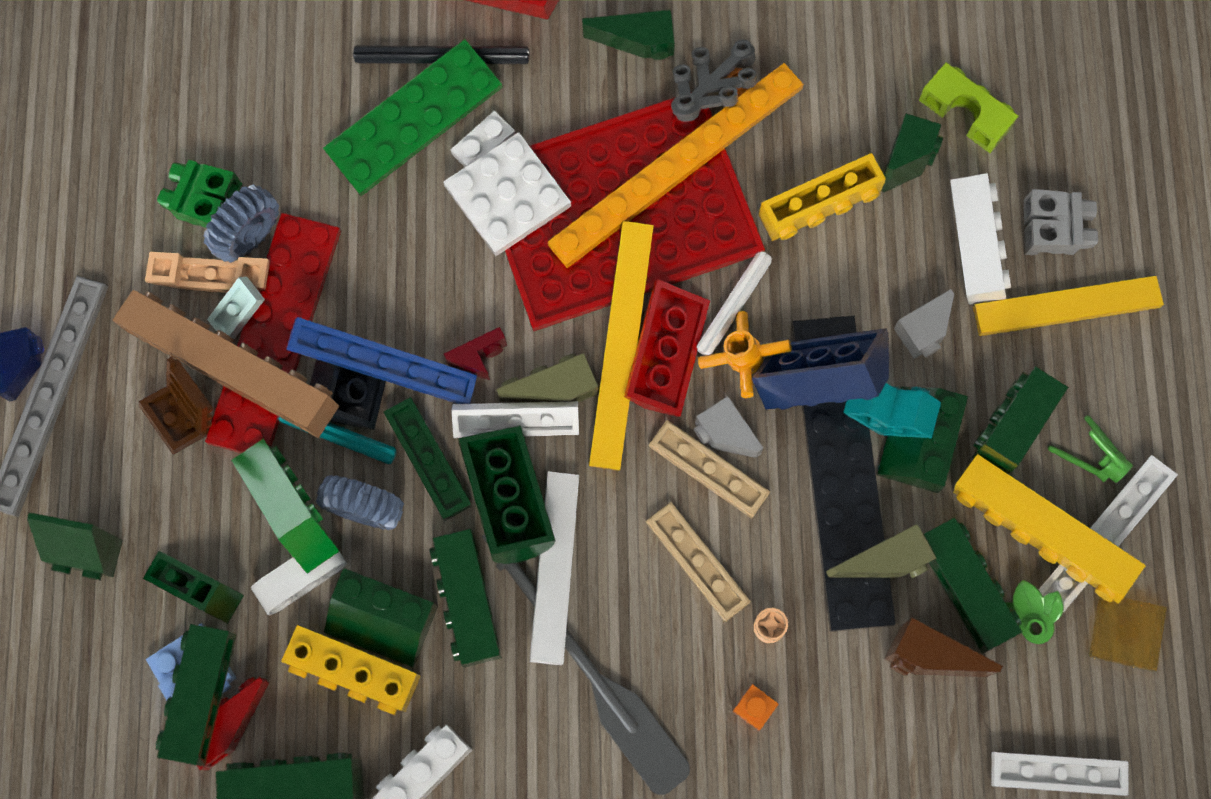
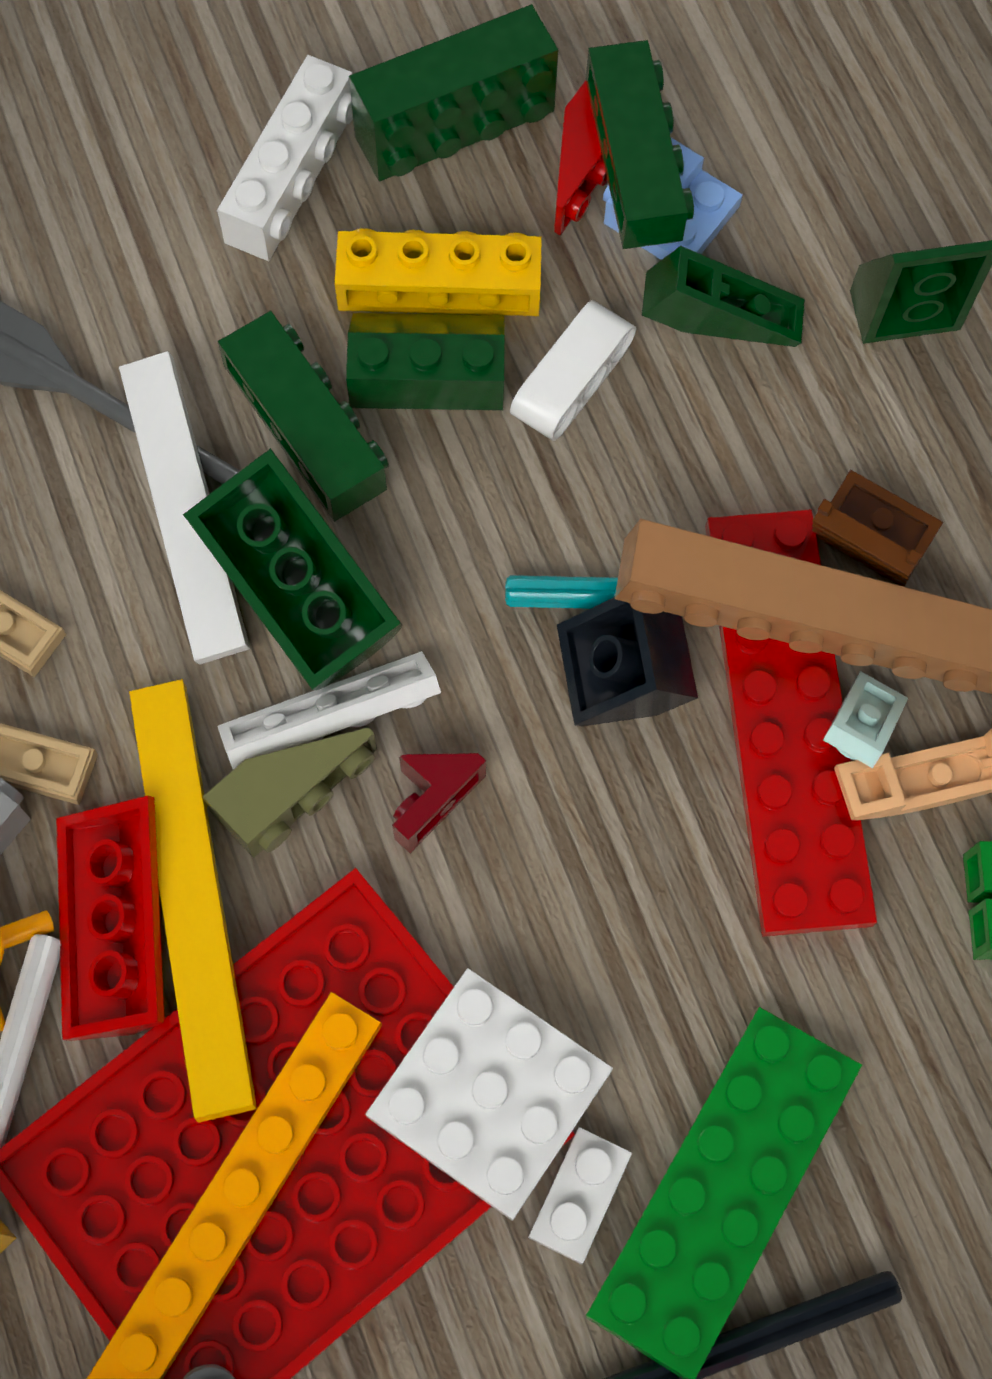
camera: 155 degrees right, 5 degrees down
(241, 223) = (929, 858): sand blue gear -> none
(285, 505) = (638, 437): green wedge -> none
(359, 502) = (521, 483): sand blue gear -> none
(381, 361) = (582, 697): blue plate -> none
(427, 459) = (450, 603): dark green plate -> none

